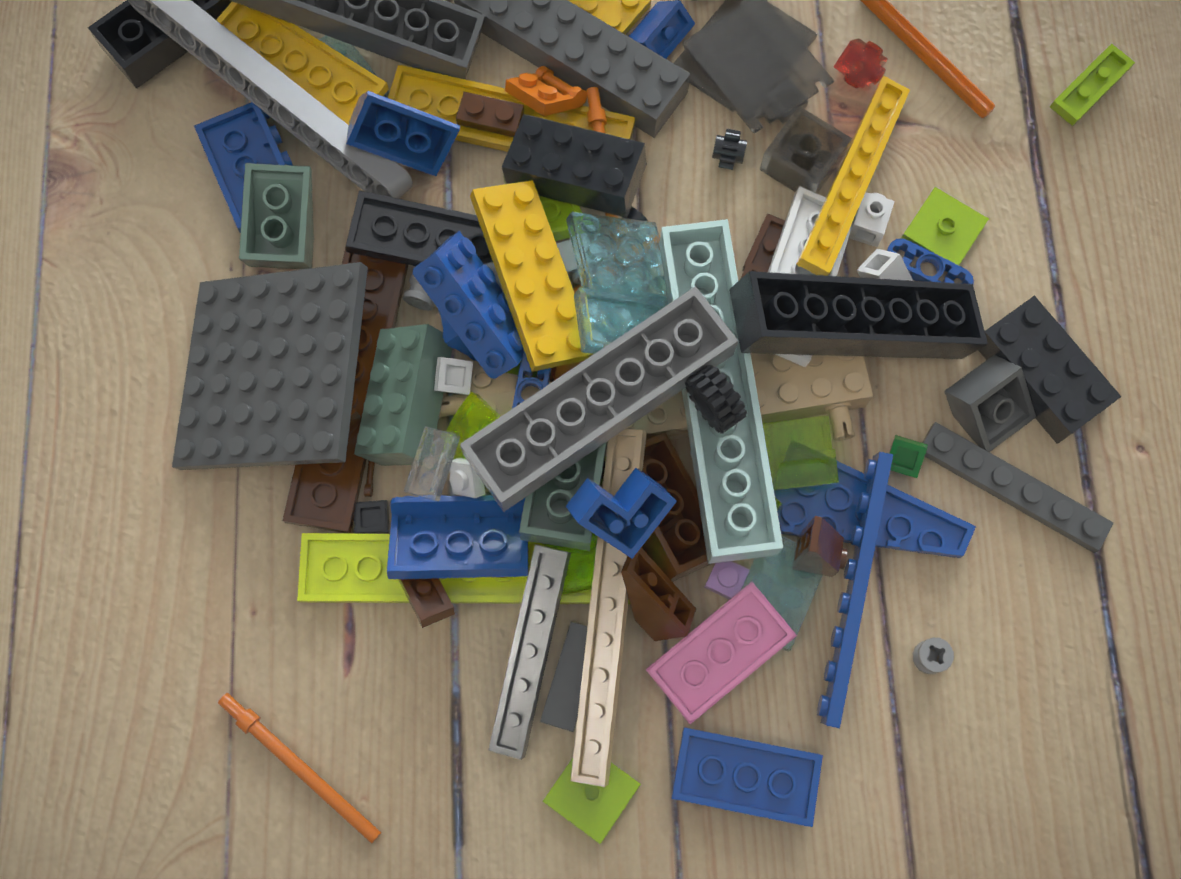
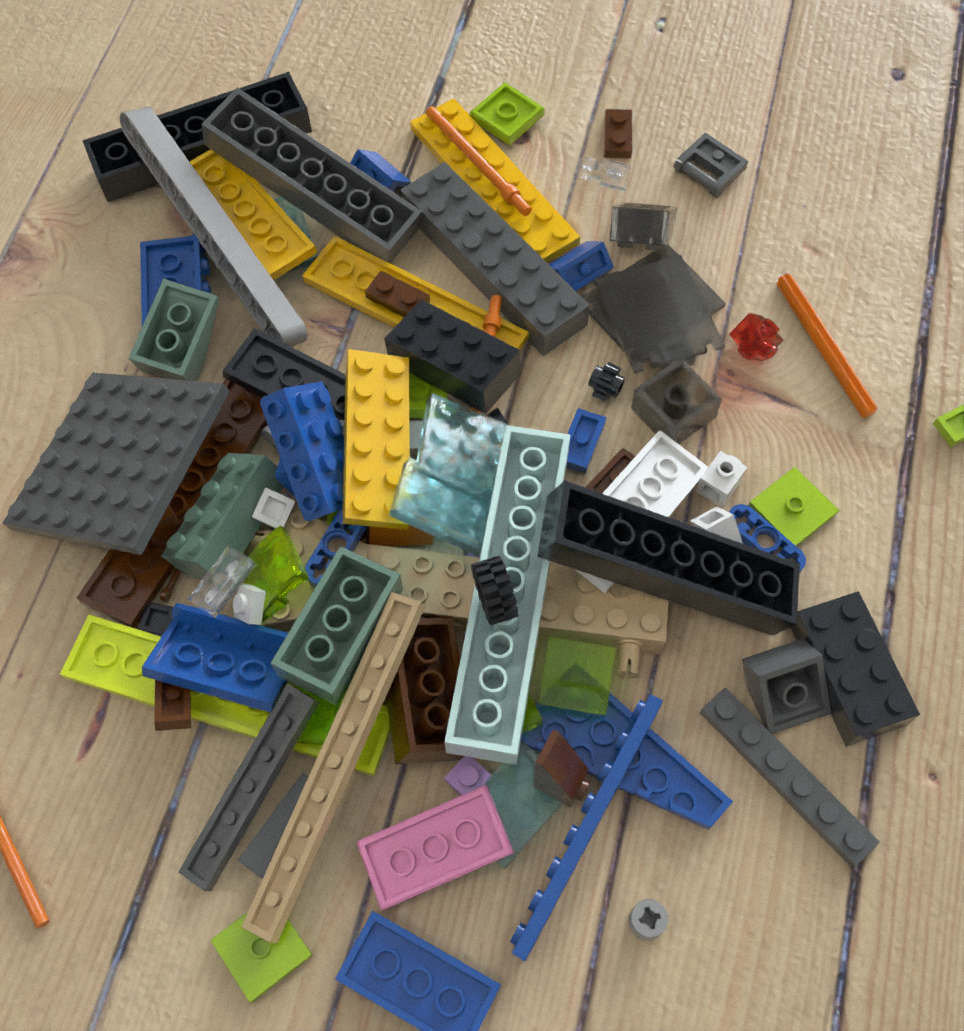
camera: 20 degrees right, 10 degrees down
(400, 133) = (308, 289): blue slope -> none
(545, 92) = (447, 289): orange plate -> none
(598, 398) = (383, 559): light grey brick -> none
(627, 516) = (368, 678): blue brick -> none
(655, 599) = (382, 769): reddish brown slope -> none
(726, 204) = (584, 437): none -> blue plate
(853, 178) = (712, 435): yellow plate -> none
(907, 456) = (684, 711): green plate -> none

